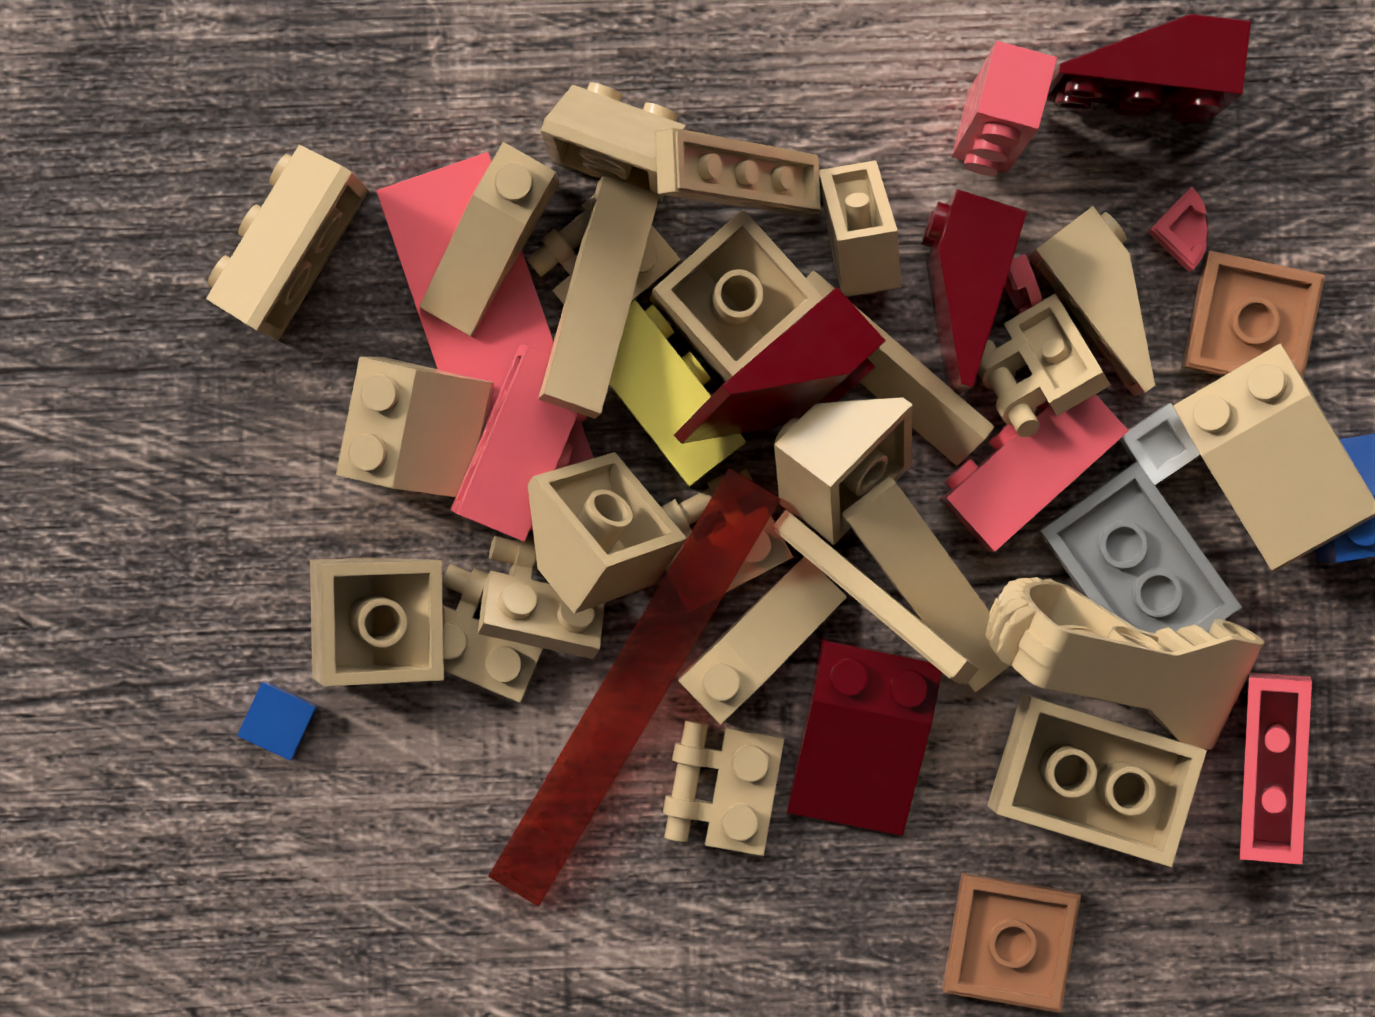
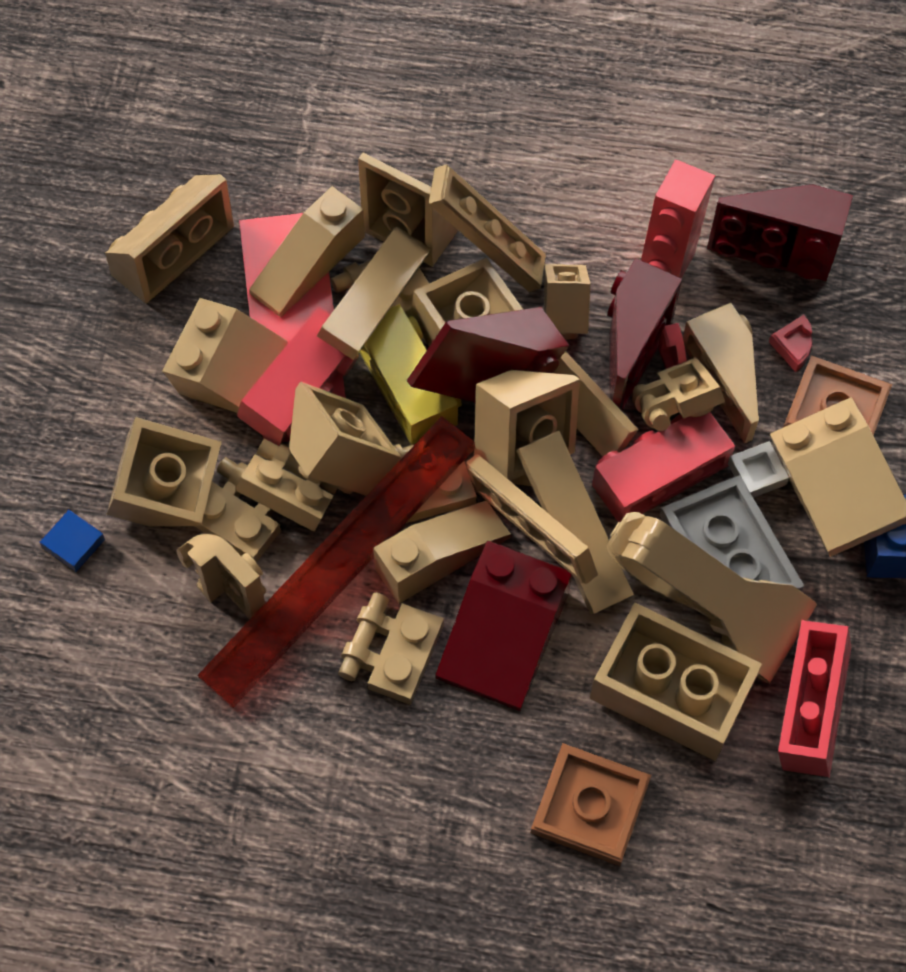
camera: 10 degrees right, 25 degrees down
(479, 738) = (224, 570): none -> tan slope

